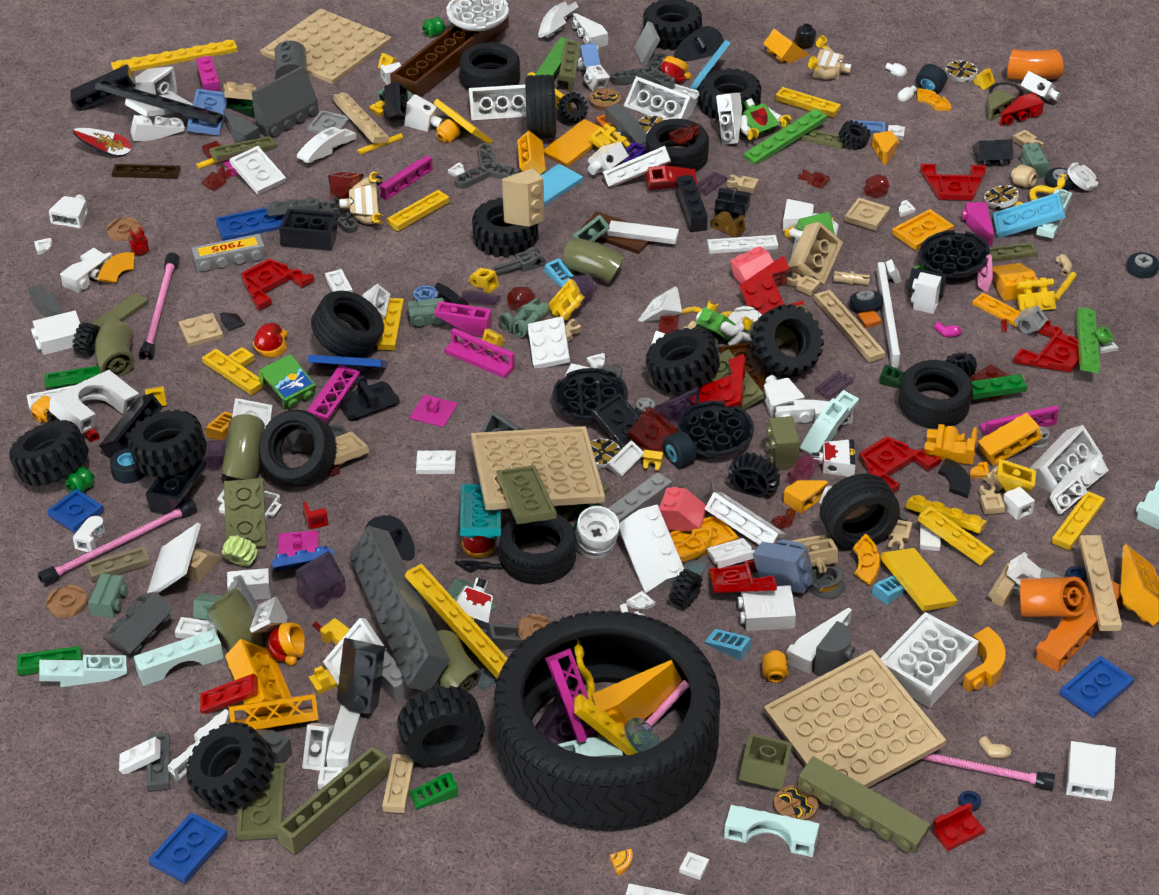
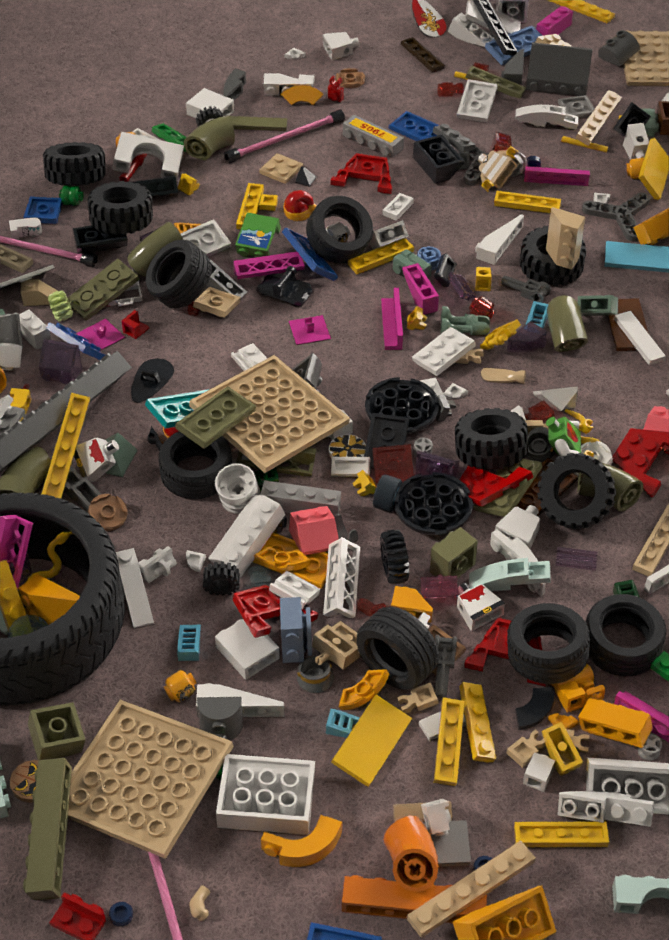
camera: 55 degrees right, 5 degrees up
(453, 254) = (497, 242): none -> white slope
(605, 326) = (503, 375): none -> tan piece
(920, 449) = (548, 666): none -> black tyre

